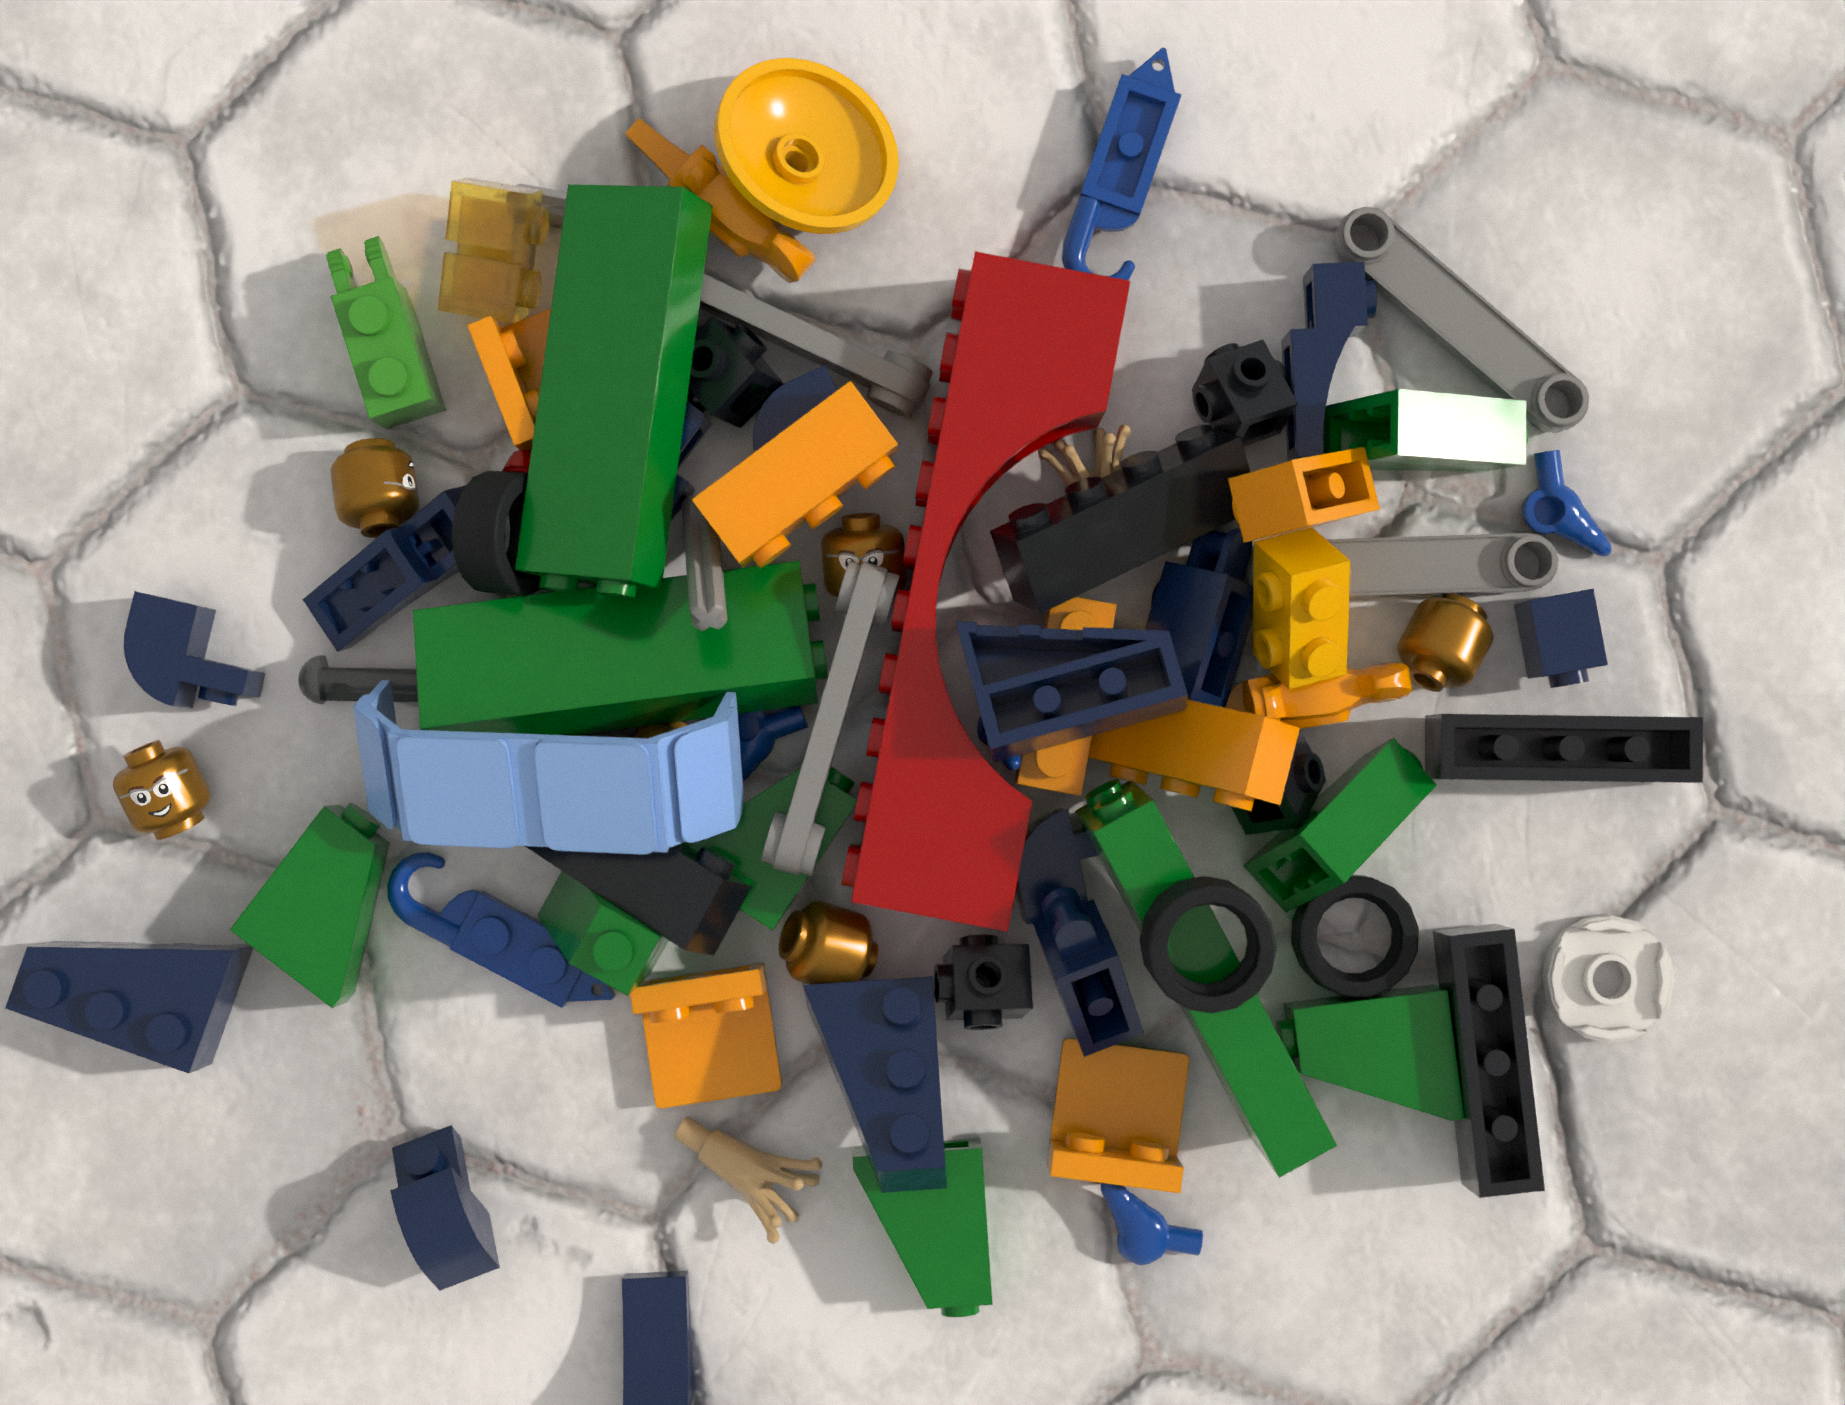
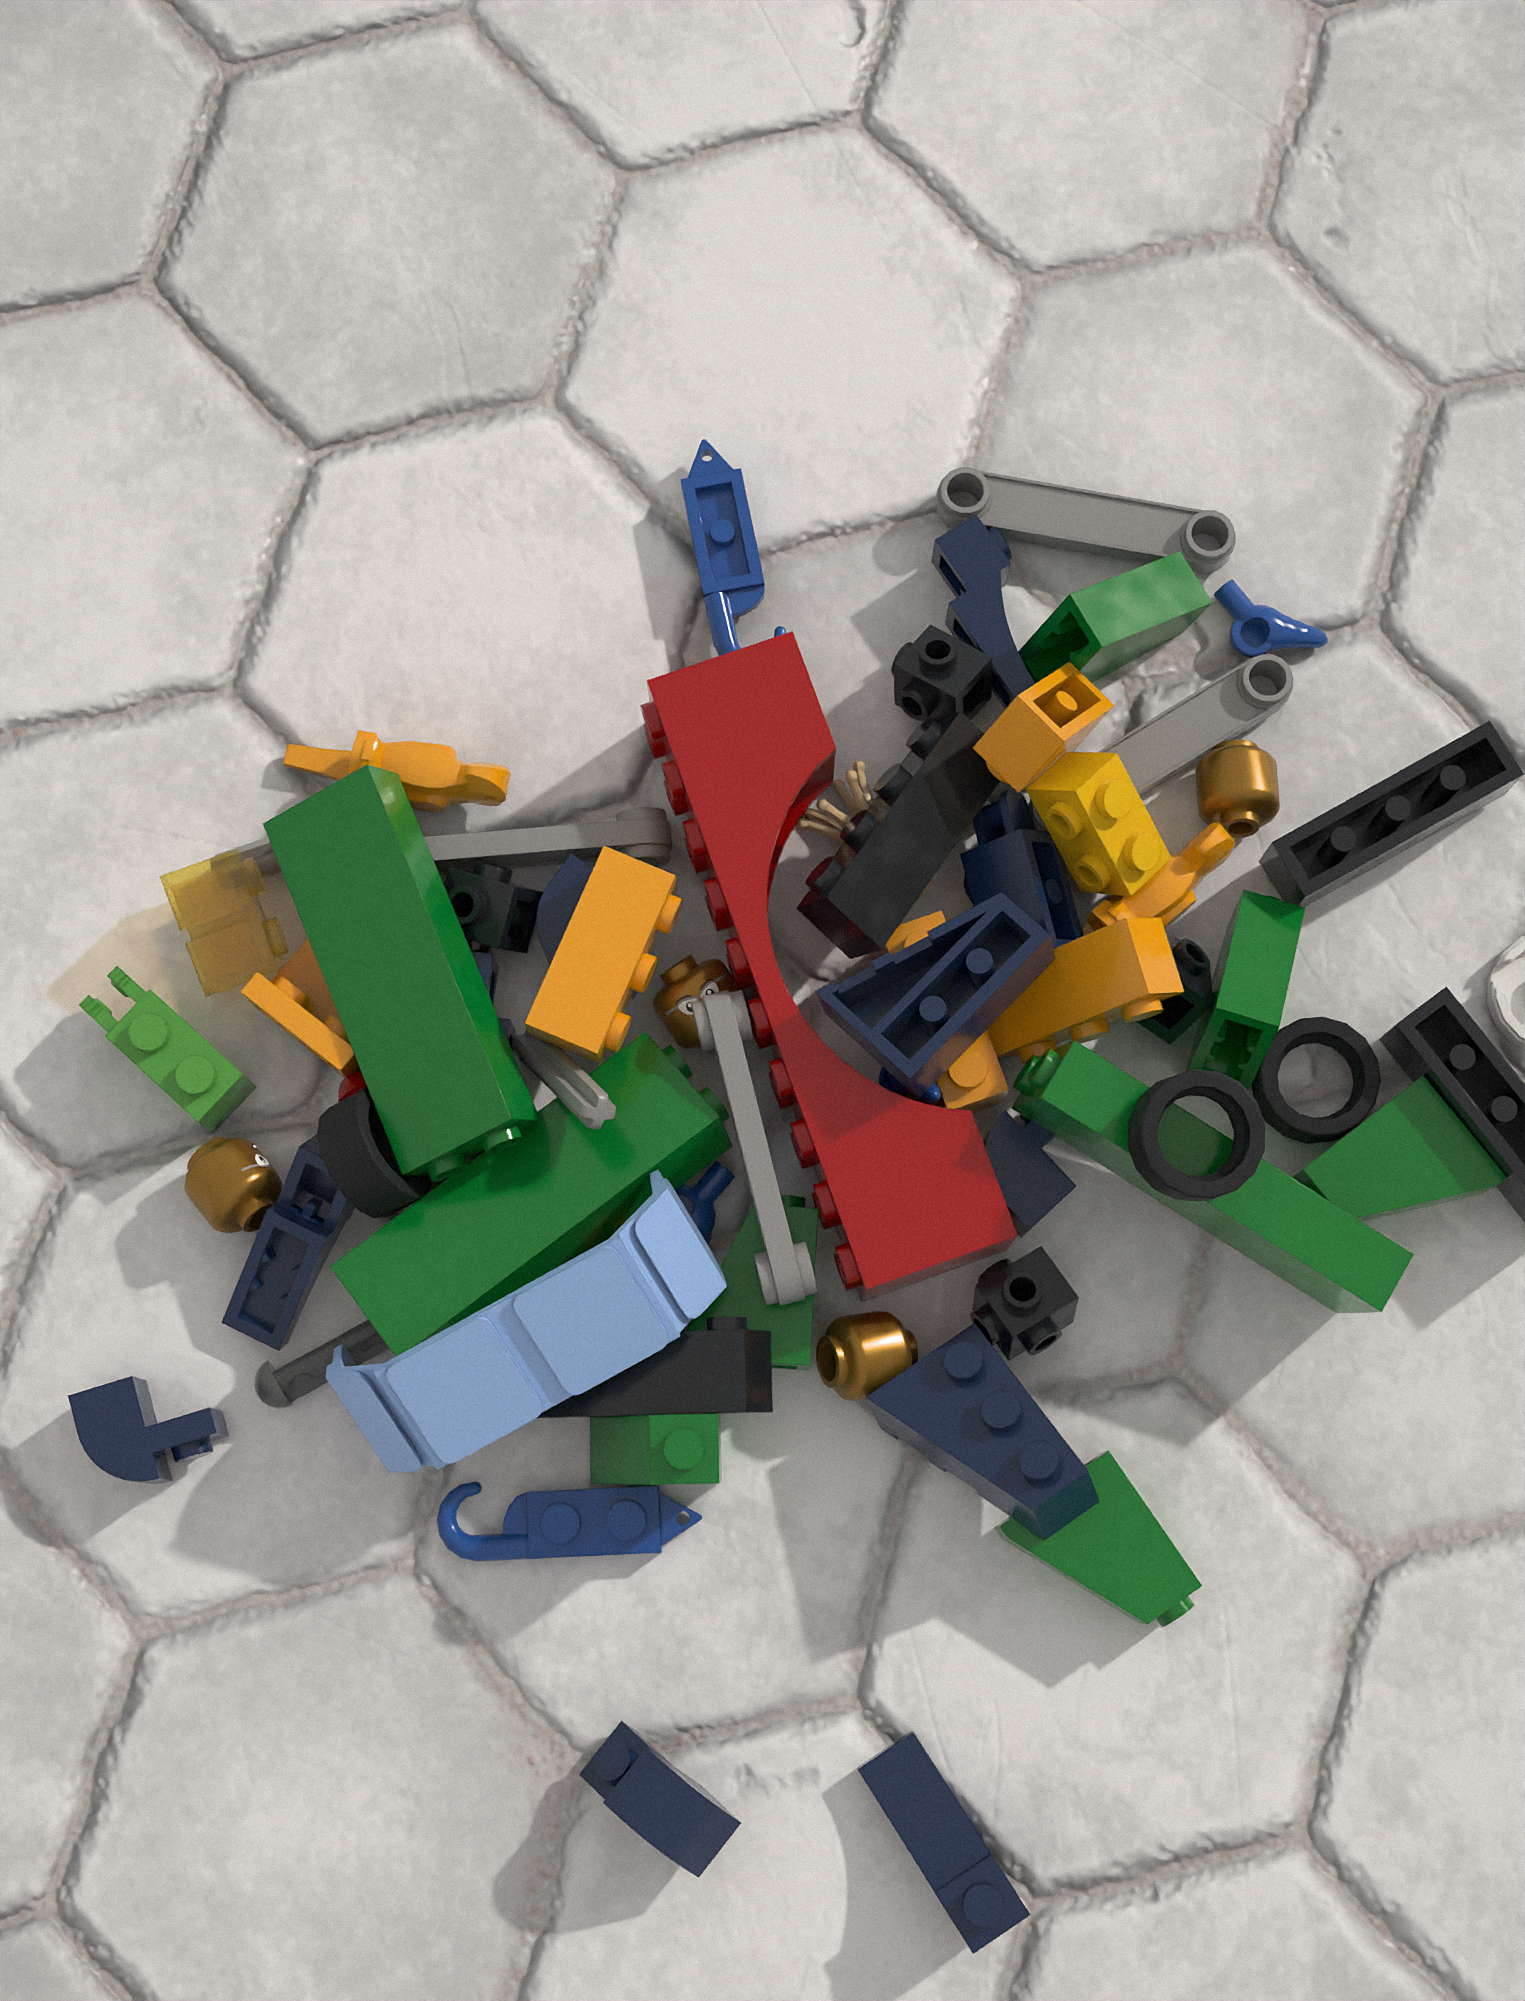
camera: 30 degrees left, 10 degrees down
(135, 996) = (268, 1767): dark blue wedge -> none
(161, 790) = (187, 1565): pearl gold head -> none
(321, 903) = (388, 1583): green slope -> none
(709, 1035) = (807, 1498): light orange bracket -> none
(750, 1171) = (913, 1600): tan piece -> none
(819, 125) = (448, 682): yellow dish -> none
(1086, 971) = (1106, 1239): dark blue brick -> none
(1119, 1116) = (1207, 1353): light orange bracket -> none
(1144, 1230) = (1293, 1446): blue animal -> none
(1561, 637) = (1330, 727): dark blue brick -> none

